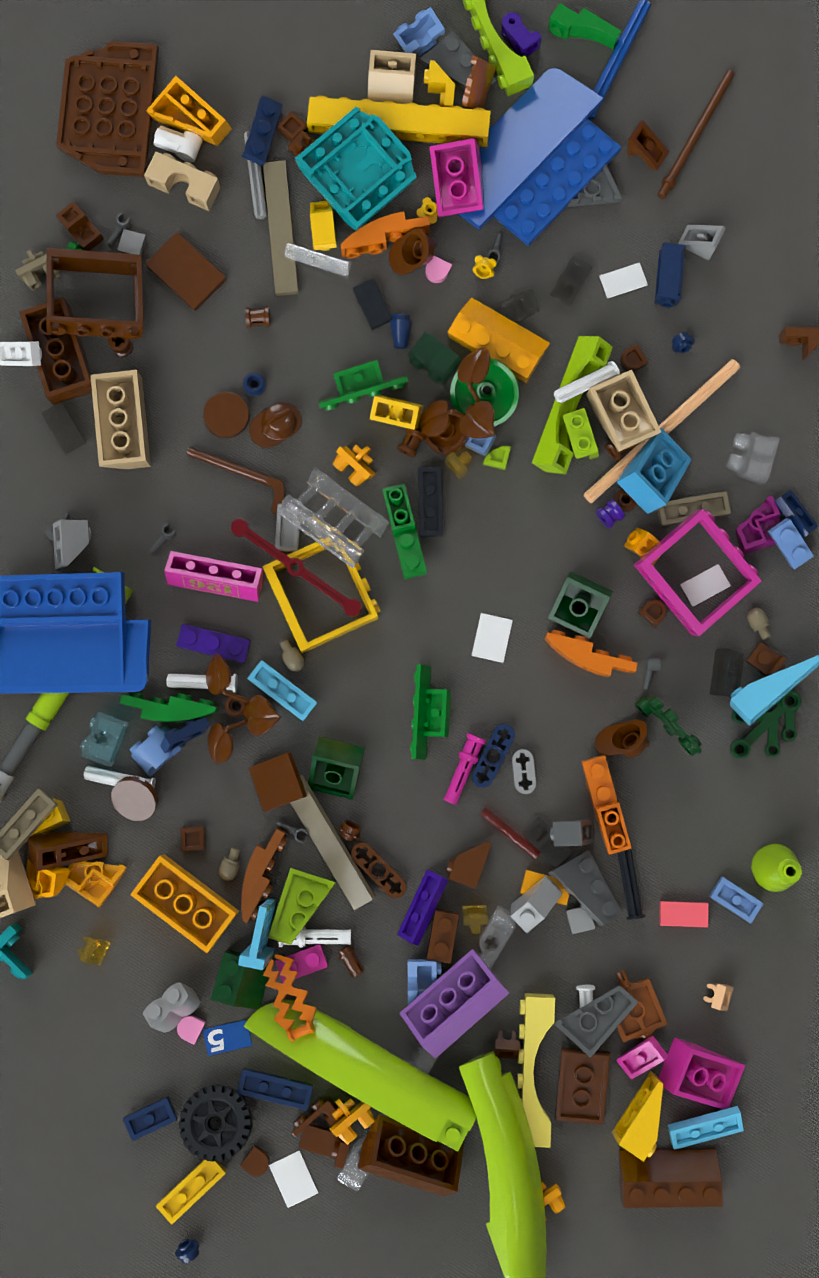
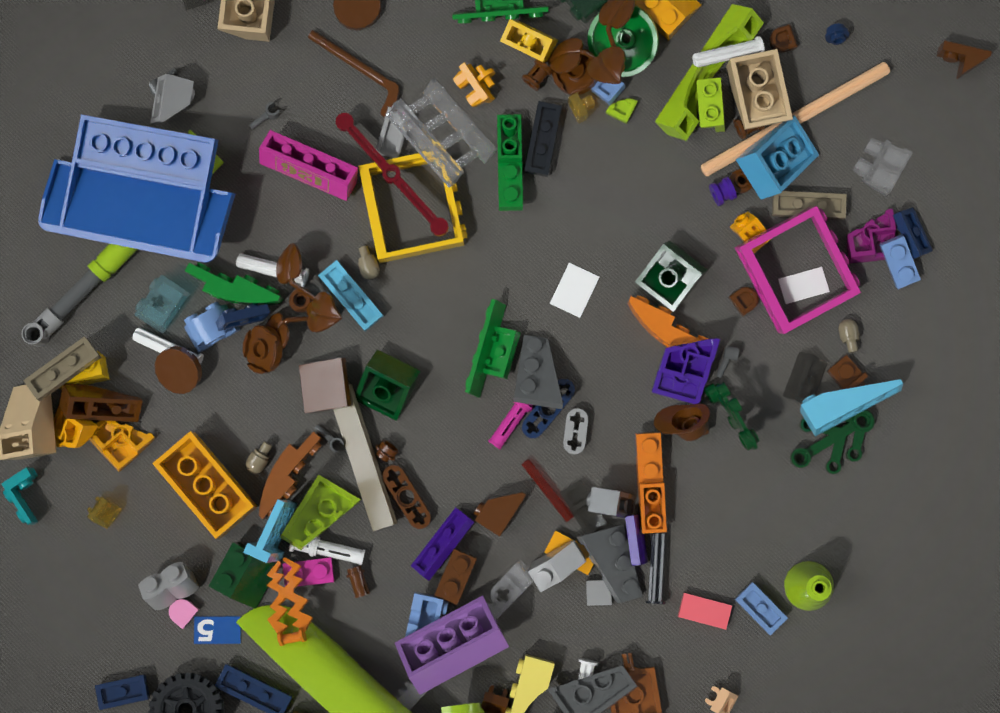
camera: 15 degrees right, 0 degrees up
(193, 838) = (227, 423): reddish brown tile -> none
(210, 760) = (262, 349): none -> reddish brown tile
(213, 642) = (290, 231): dark purple plate -> none
(275, 425) = (404, 27): reddish brown piece -> none
(475, 916) = (493, 565): clear yellow tile -> none
(476, 727) = (537, 375): none -> dark grey wing
(604, 862) = (636, 540): none -> tile
(614, 691) = (685, 370): none -> dark purple slope

